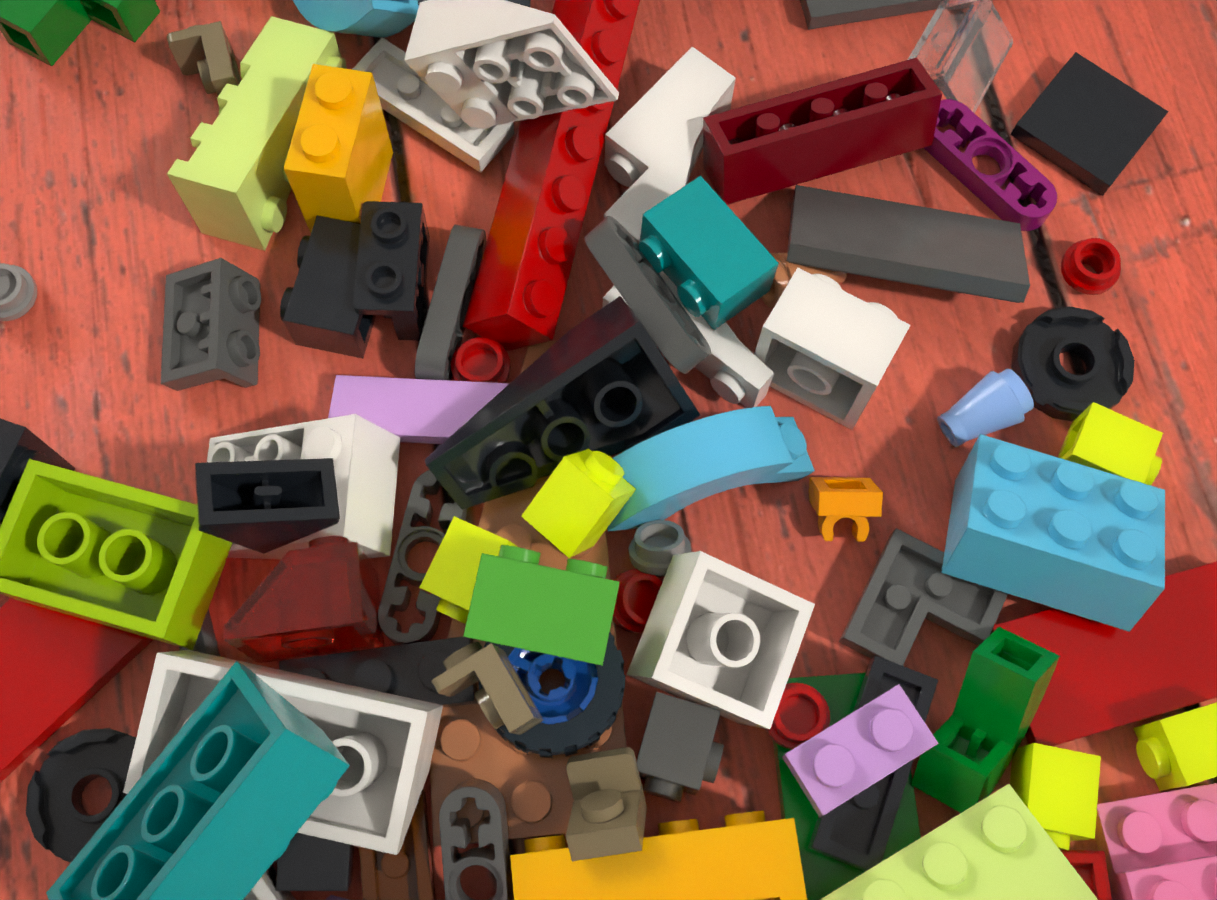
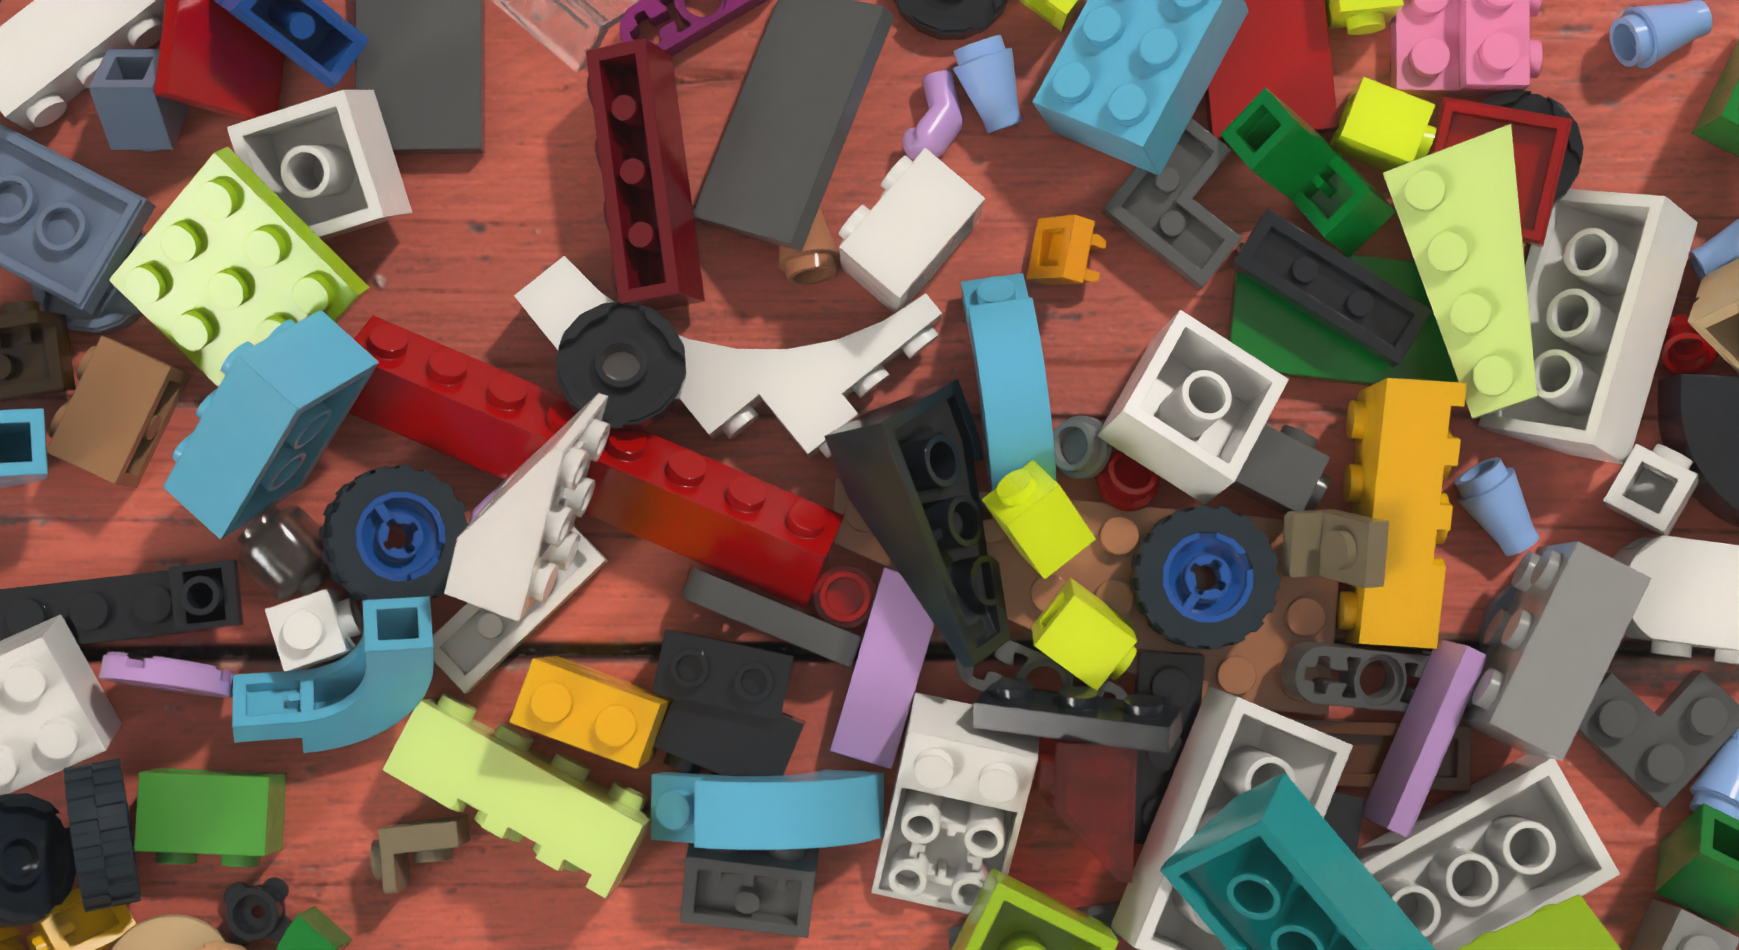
camera: 75 degrees left, 15 degrees up
(266, 501) = (994, 826): black slope -> none
(269, 325) = (768, 811): none -> medium azure arch
(390, 574) = (1078, 715): none -> black plate
(503, 693) = (1226, 623): dark tan bracket -> none
(542, 606) = (1155, 571): bright green brick -> none
(645, 156) = (629, 329): none -> black tile
(647, 295) = (827, 407): dark grey beam -> none
(706, 253) = (792, 337): teal brick -> none
(799, 716) = (1276, 345): red plate -> none
(859, 750) = (1323, 300): lavender plate -> none
(935, 374) = (942, 120): none -> lavender arm

